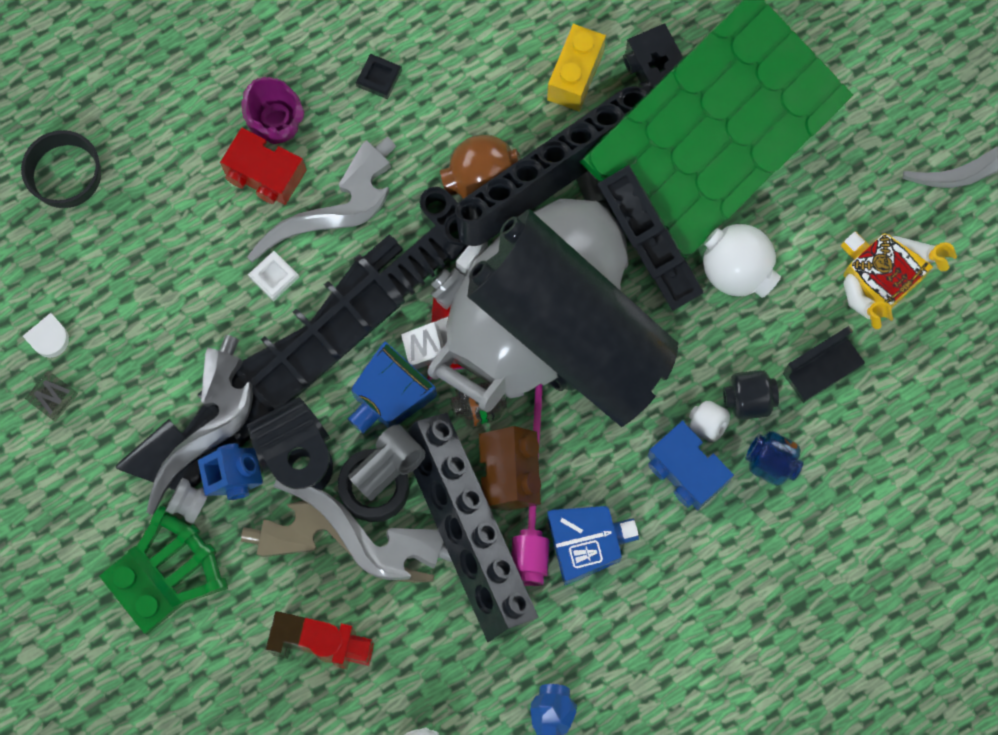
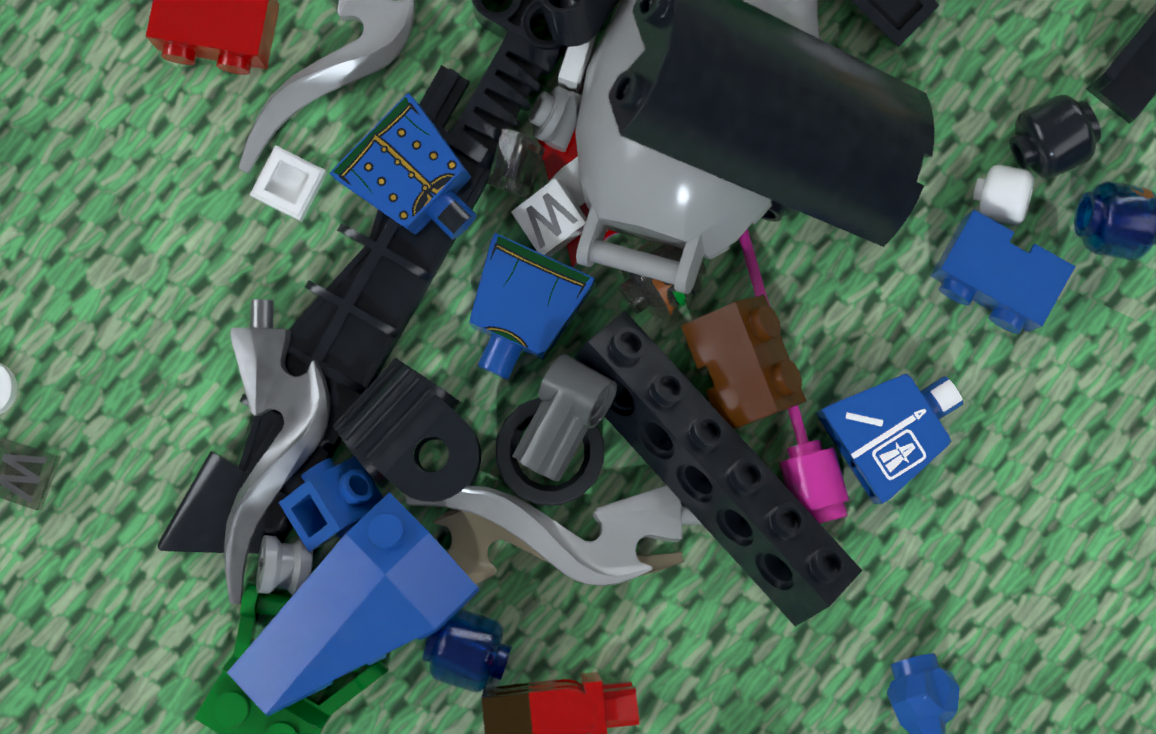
camera: 20 degrees left, 10 degrees up
(225, 534) = (362, 601): none -> blue wedge
(279, 589) = (467, 651): none -> clear blue head
(345, 287) = (409, 172): none -> blue torso
(413, 306) = (516, 164): none -> clear smoke tile

